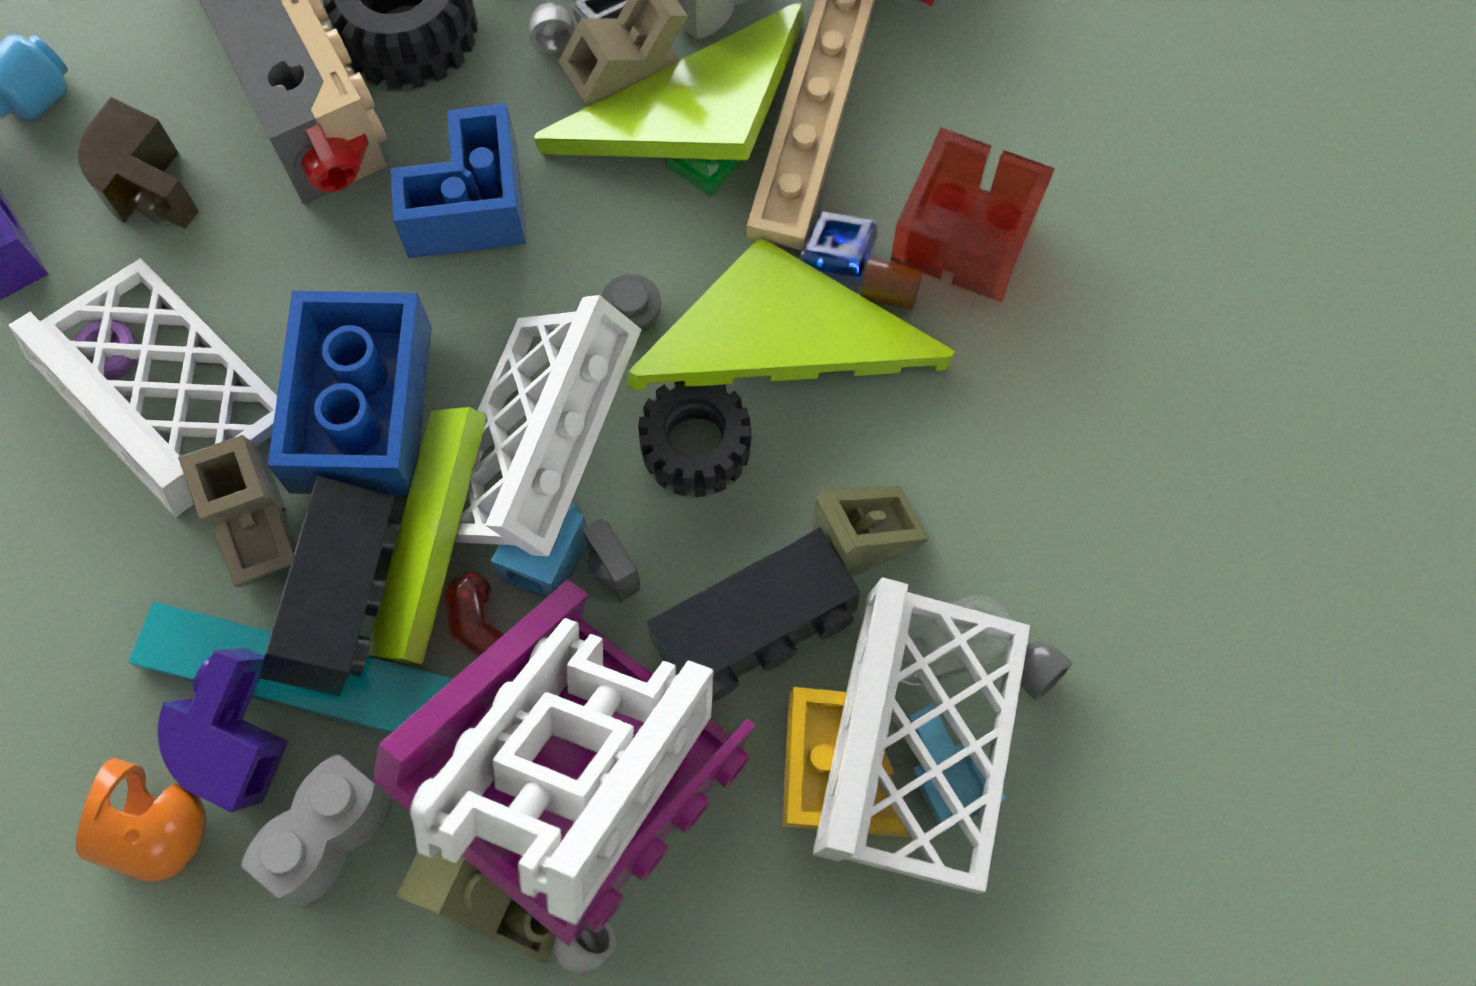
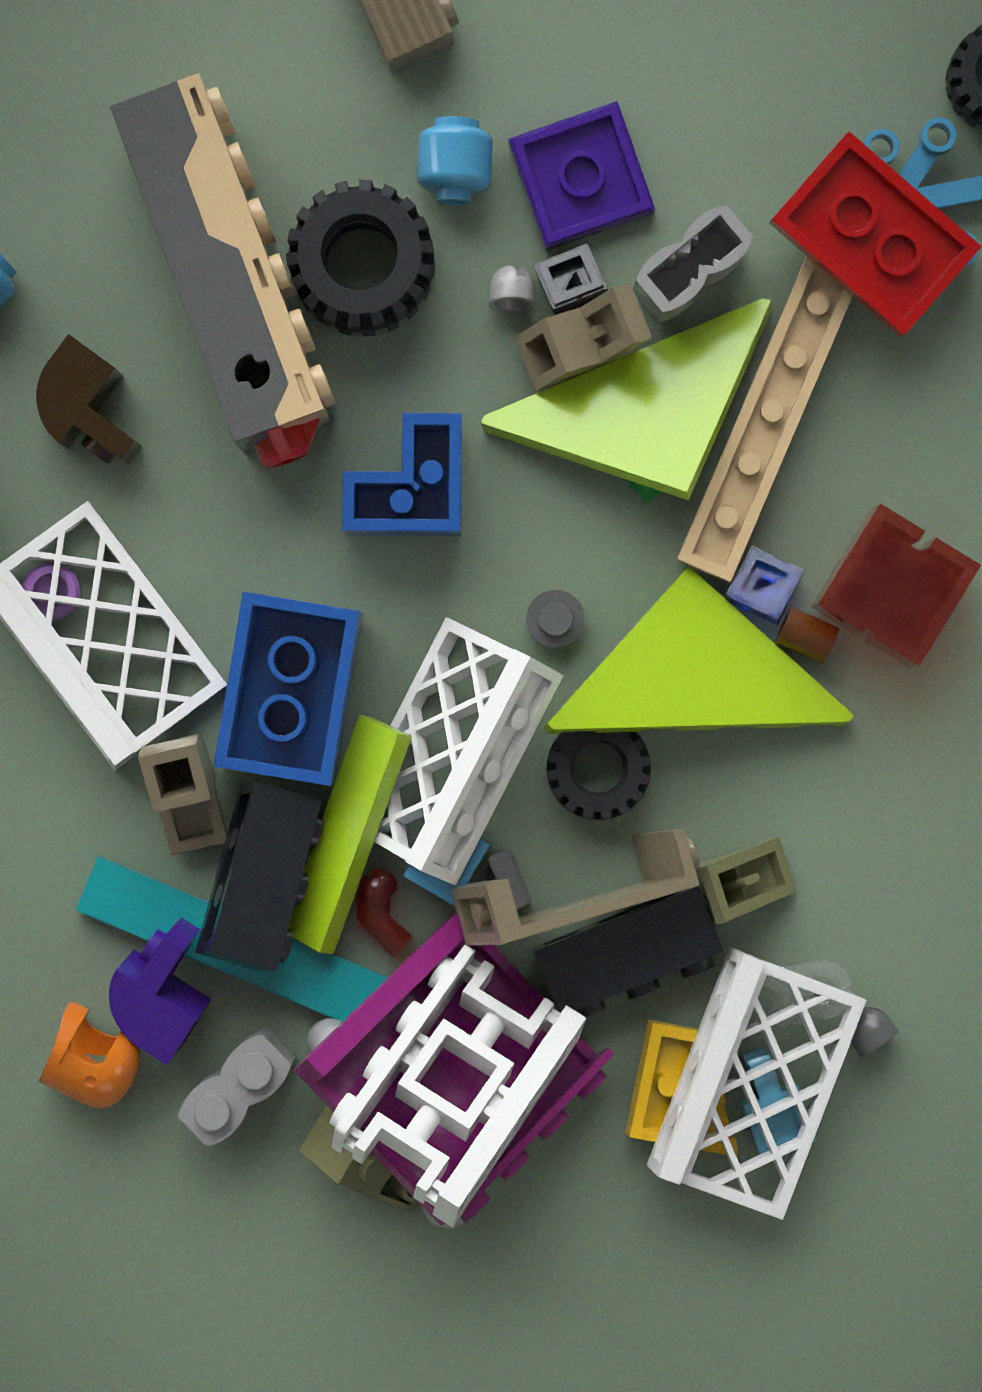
camera: 10 degrees right, 20 degrees up
(599, 576) = (490, 913): none -> dark tan panel

